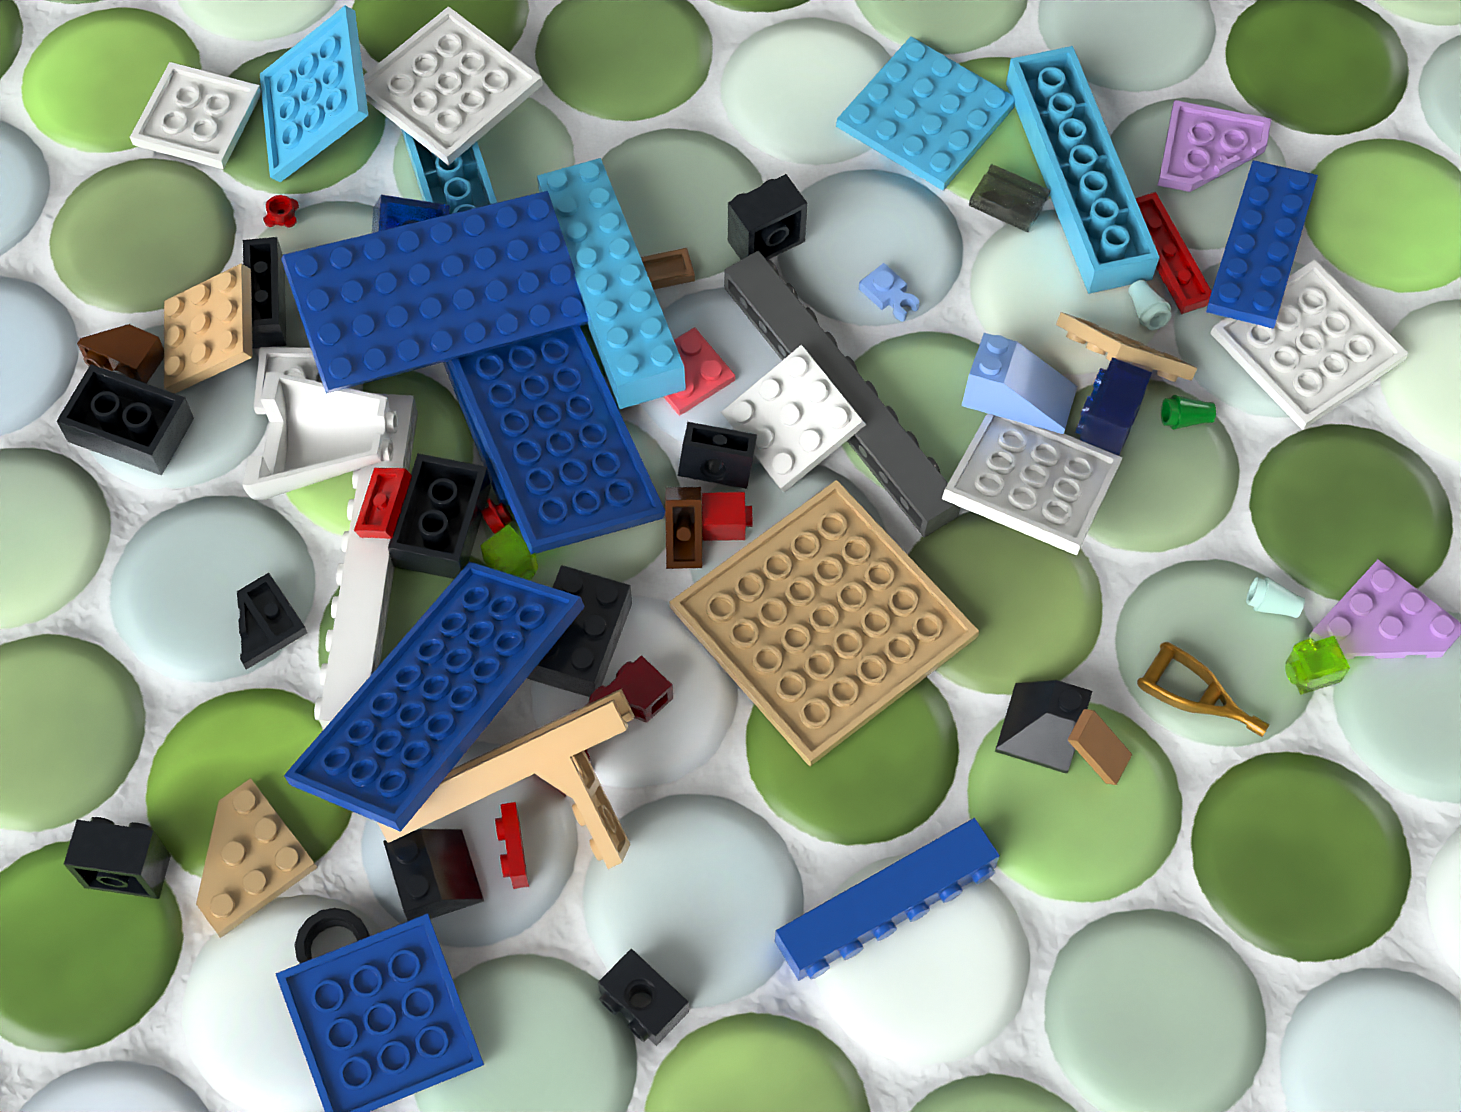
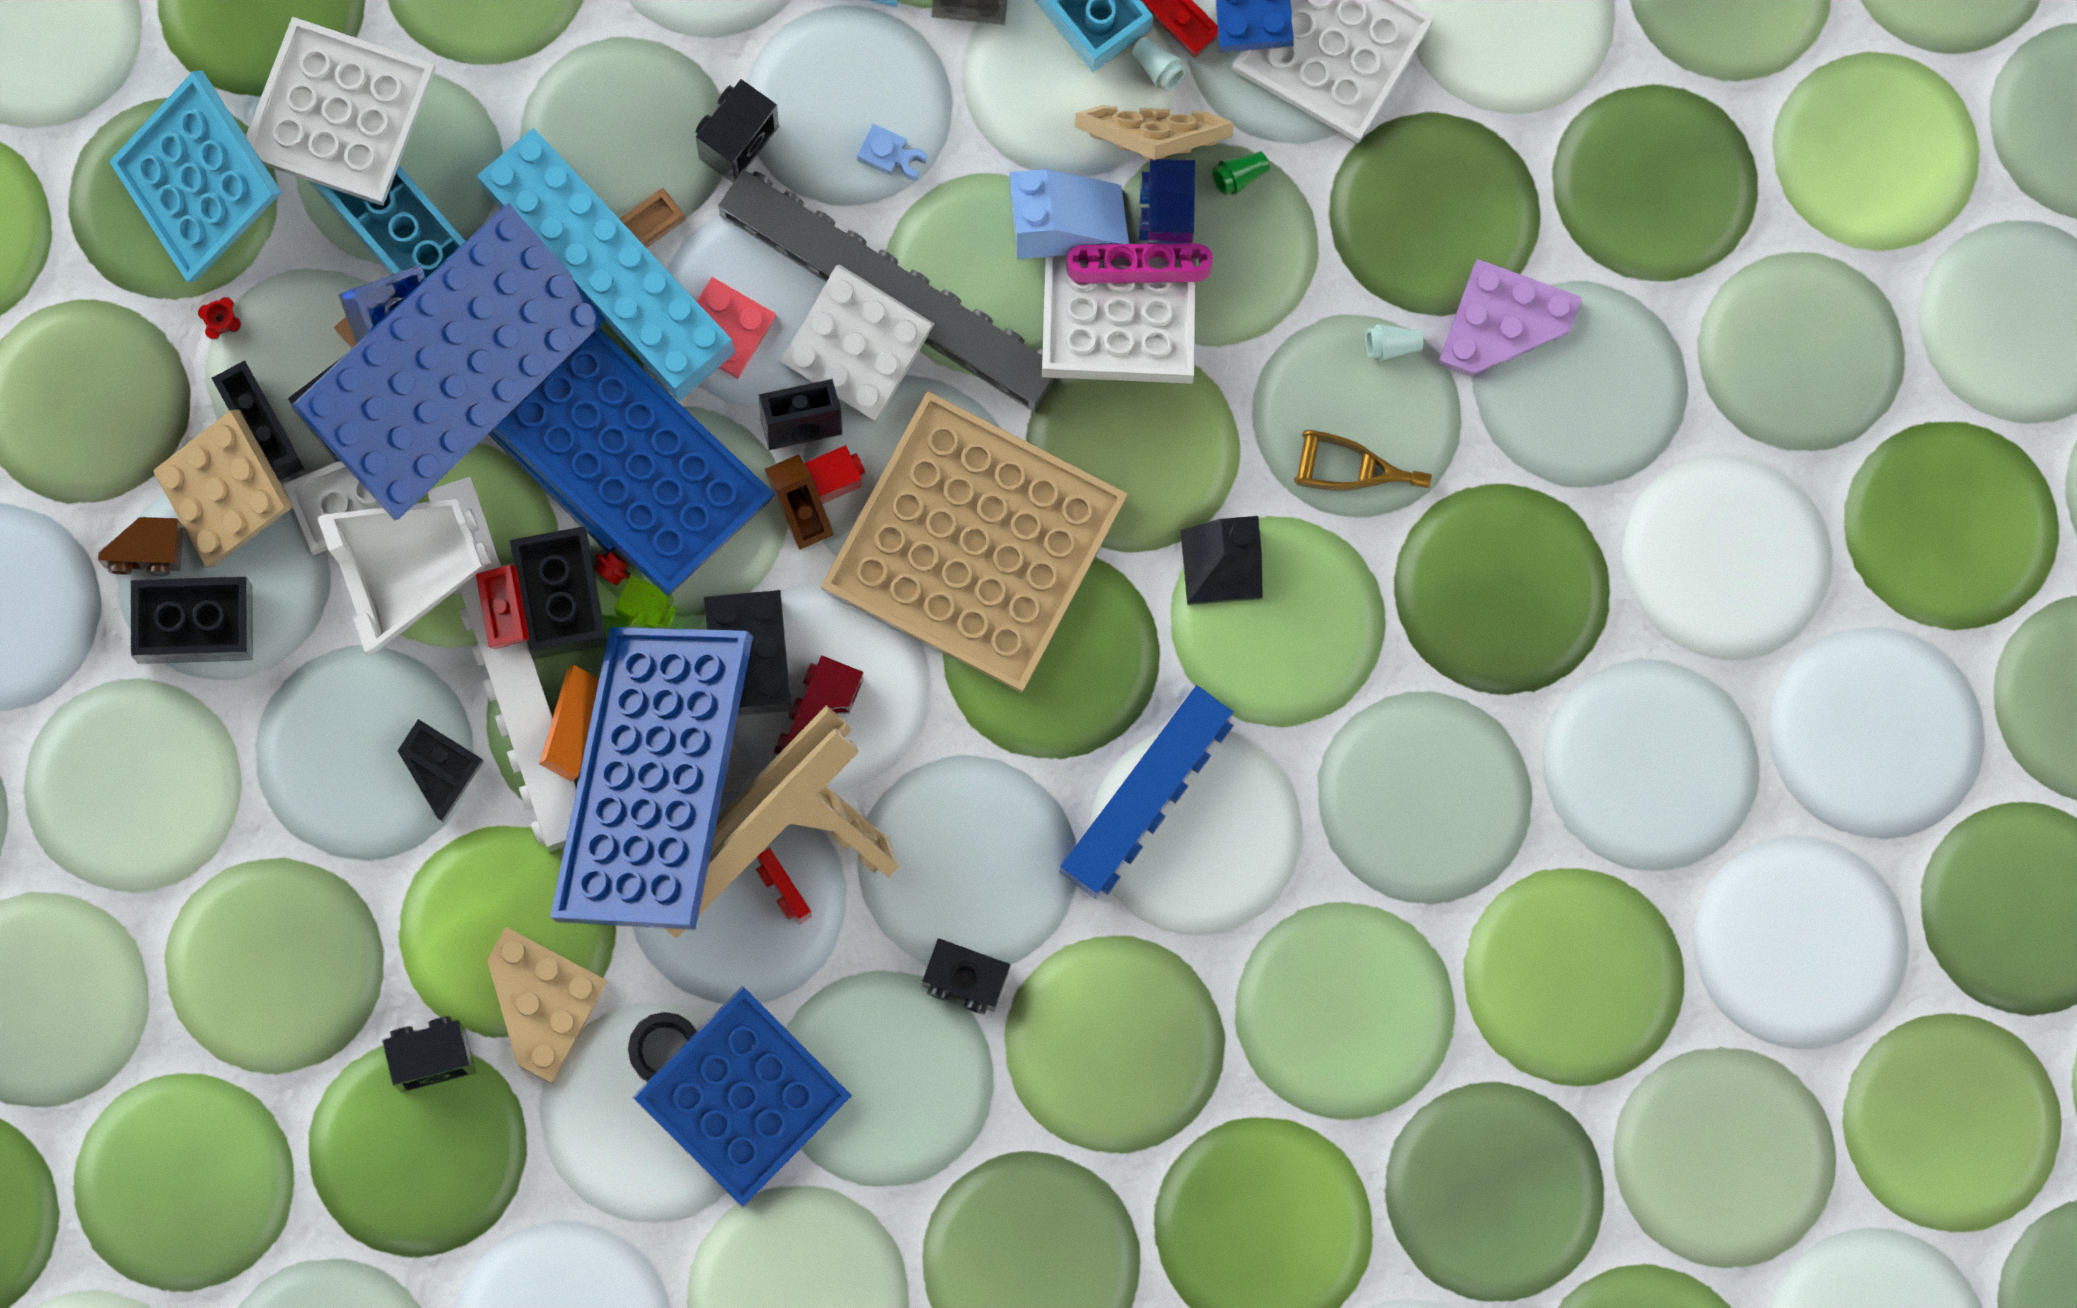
camera: 30 degrees left, 15 degrees up
(196, 115) = (68, 240): white plate -> none
(386, 630) = (570, 724): none -> orange tile
(433, 872) = (724, 944): black slope -> none
(1068, 443) = (1139, 269): none -> dark pink beam
(1099, 747) = (1284, 566): medium nougat tile -> none
(1316, 664) = (1453, 395): clear neon green brick -> none

